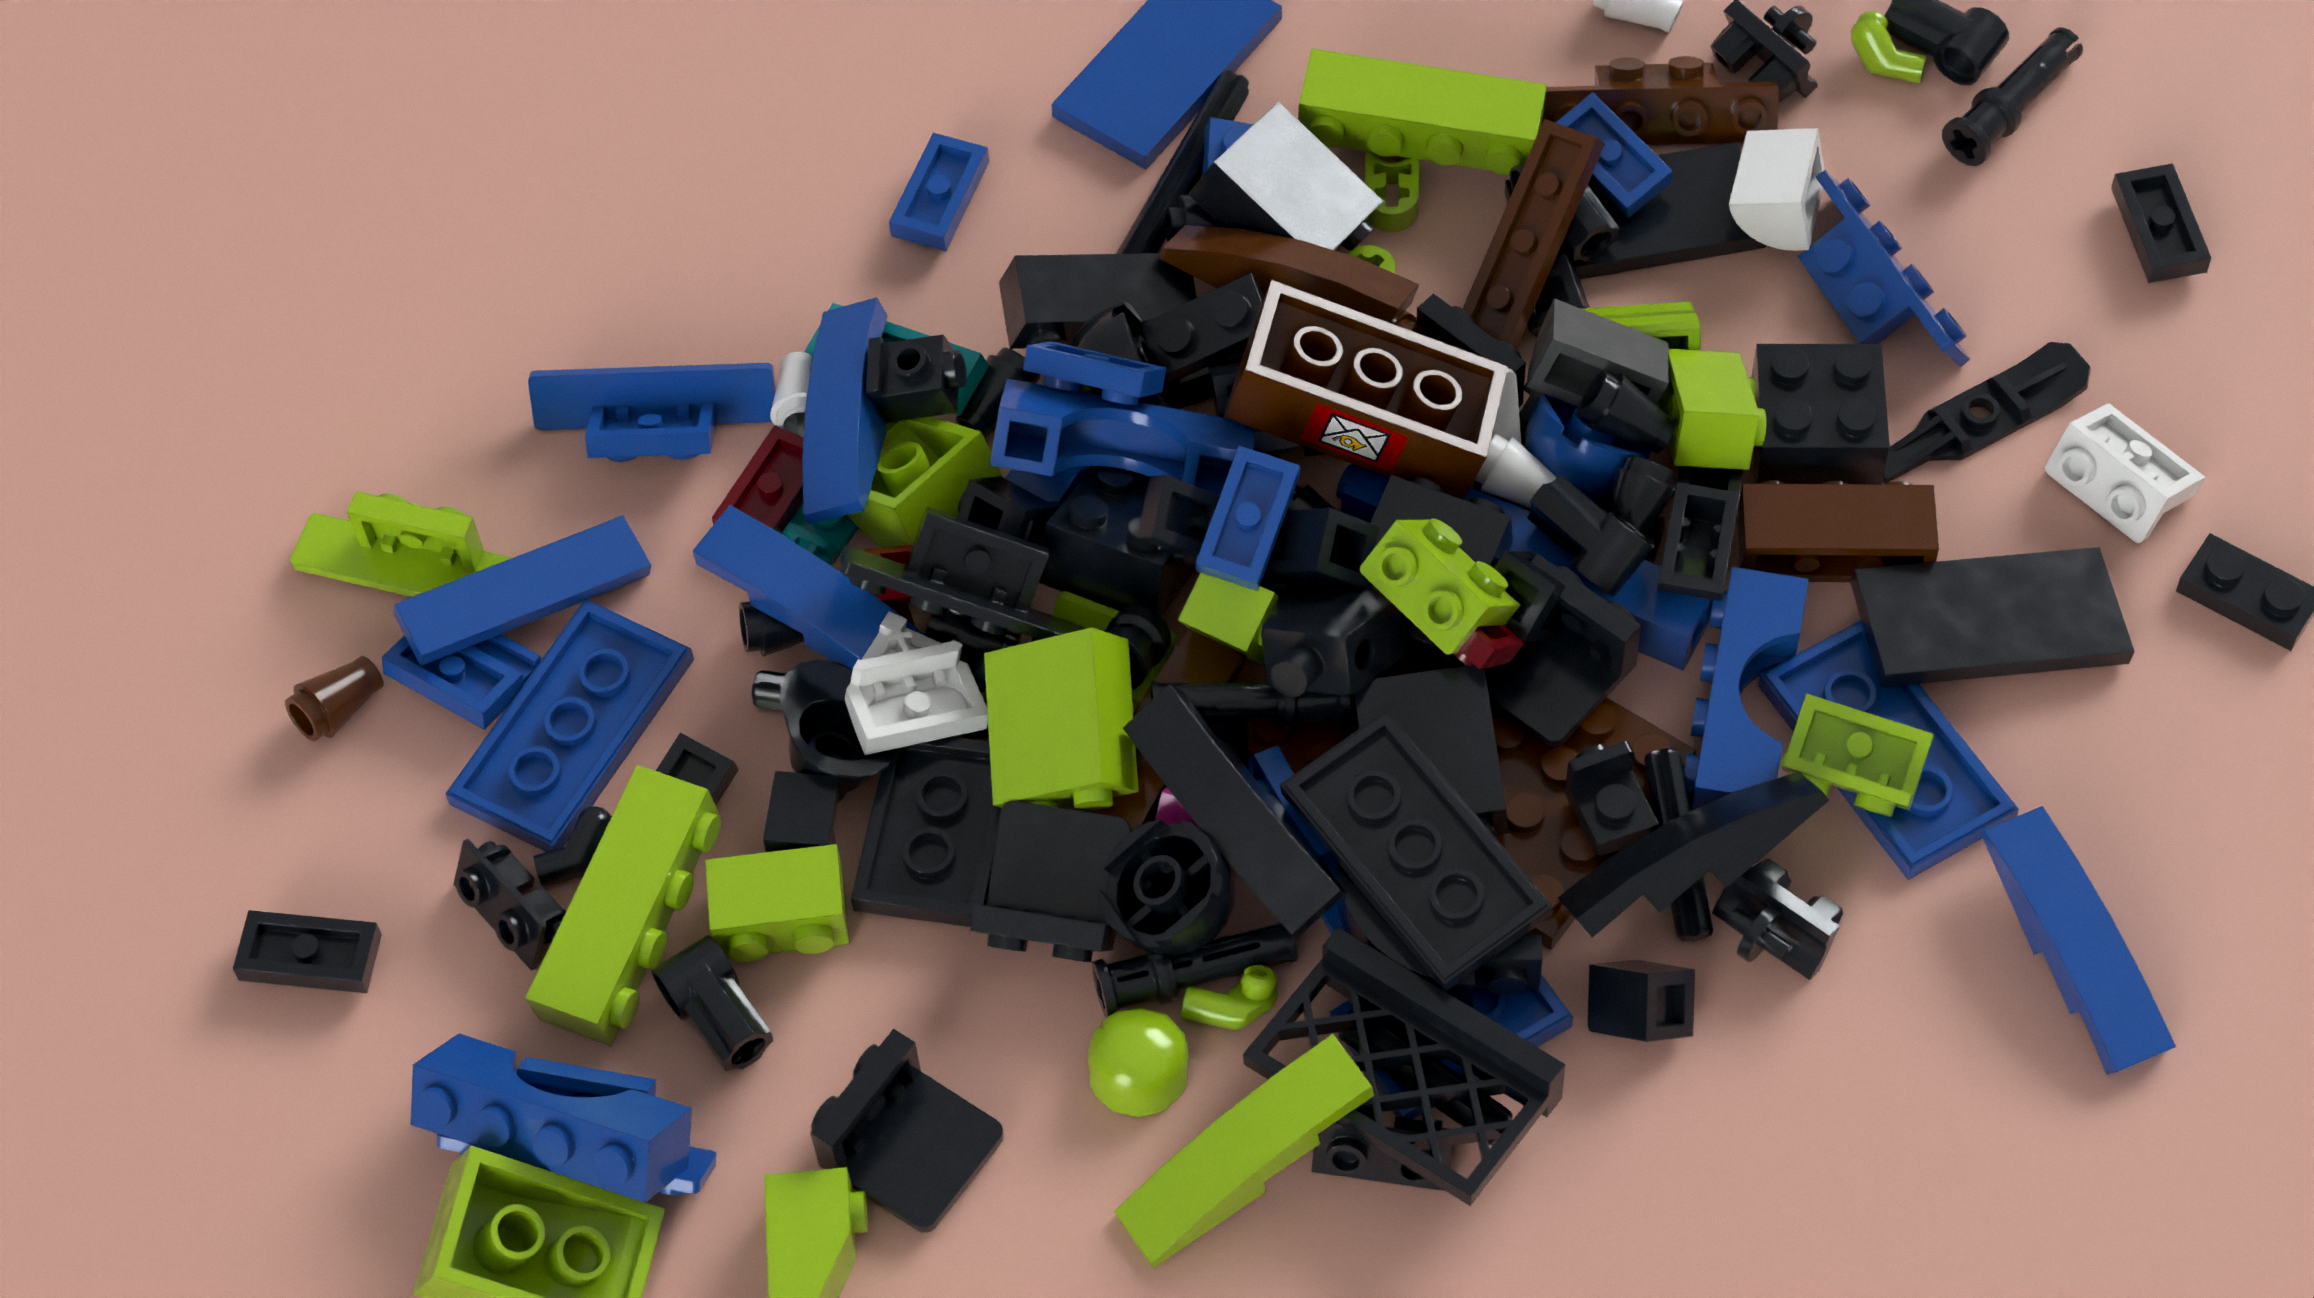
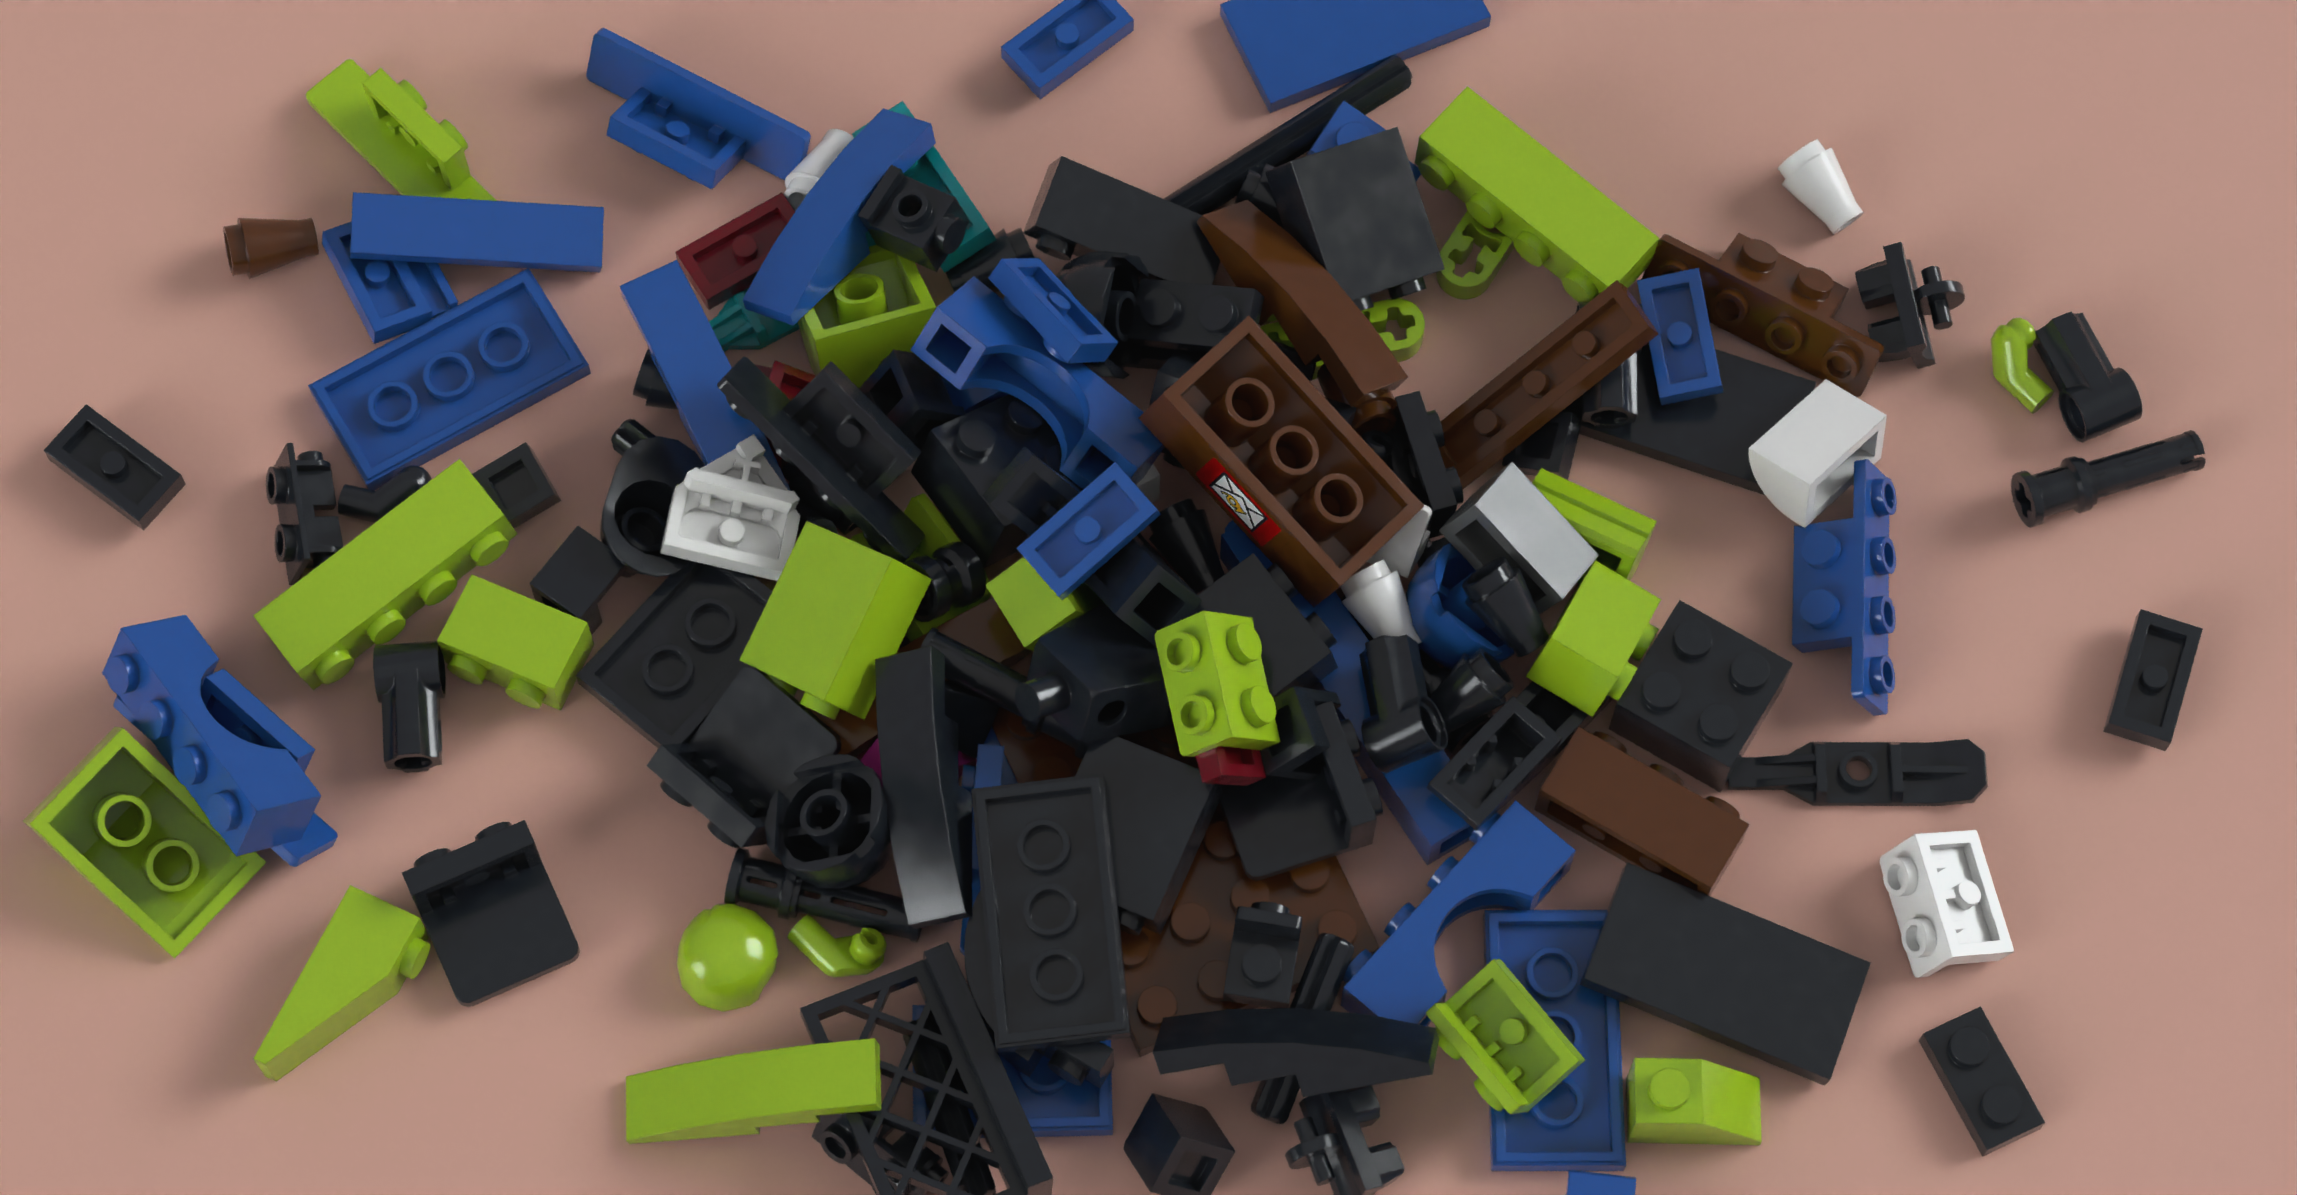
camera: 25 degrees right, 10 degrees up
(2034, 731) = (1691, 1103): none -> lime slope

